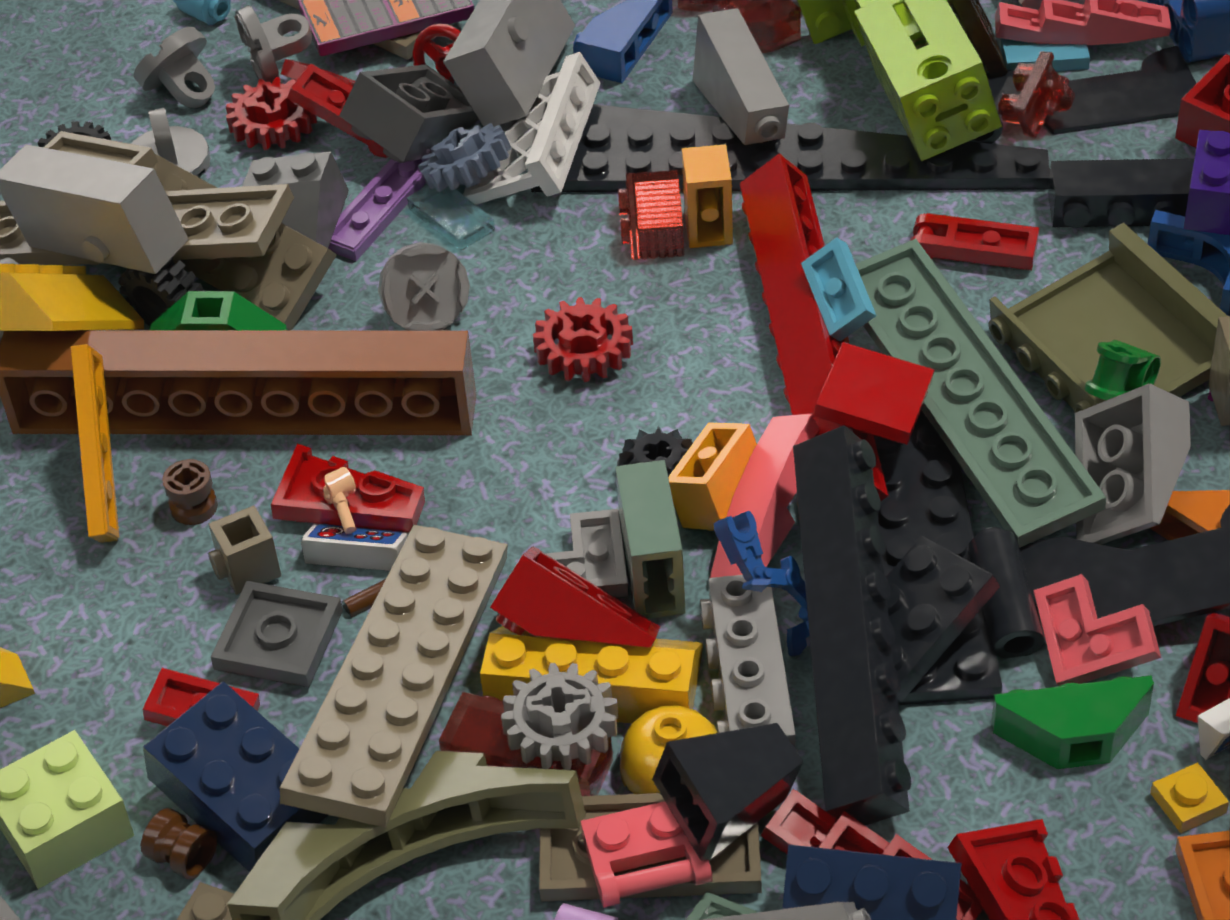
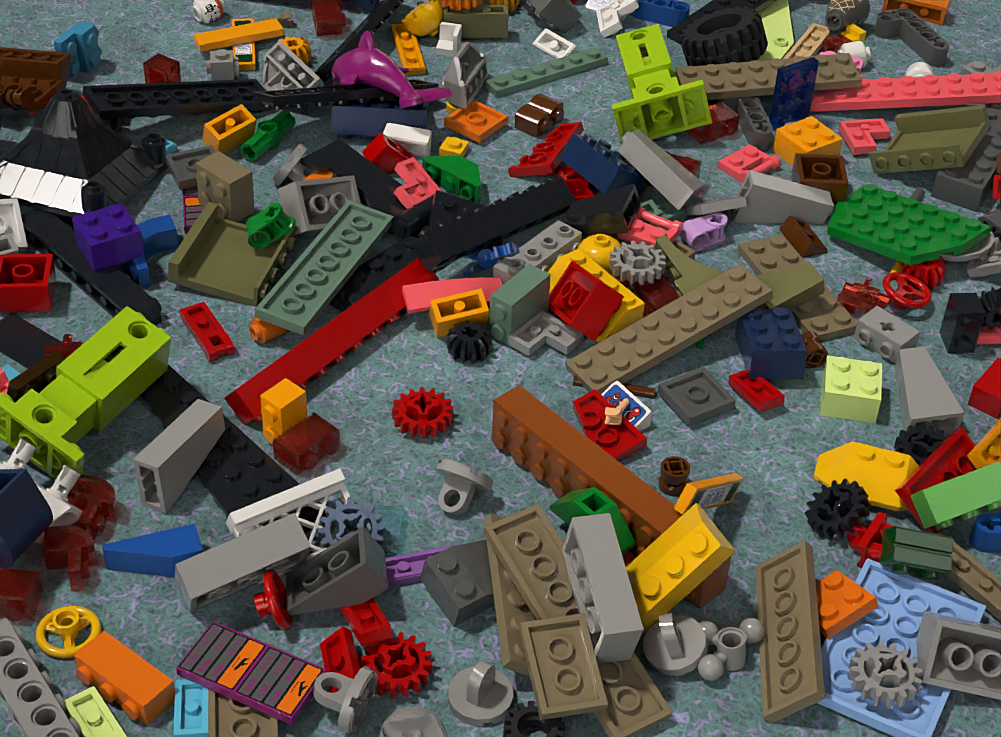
camera: 140 degrees left, 5 degrees down
(243, 549) = (681, 423): dark tan brick -> none
(838, 289) = (319, 311): medium azure plate -> none
(874, 393) = (372, 270): red tile -> none

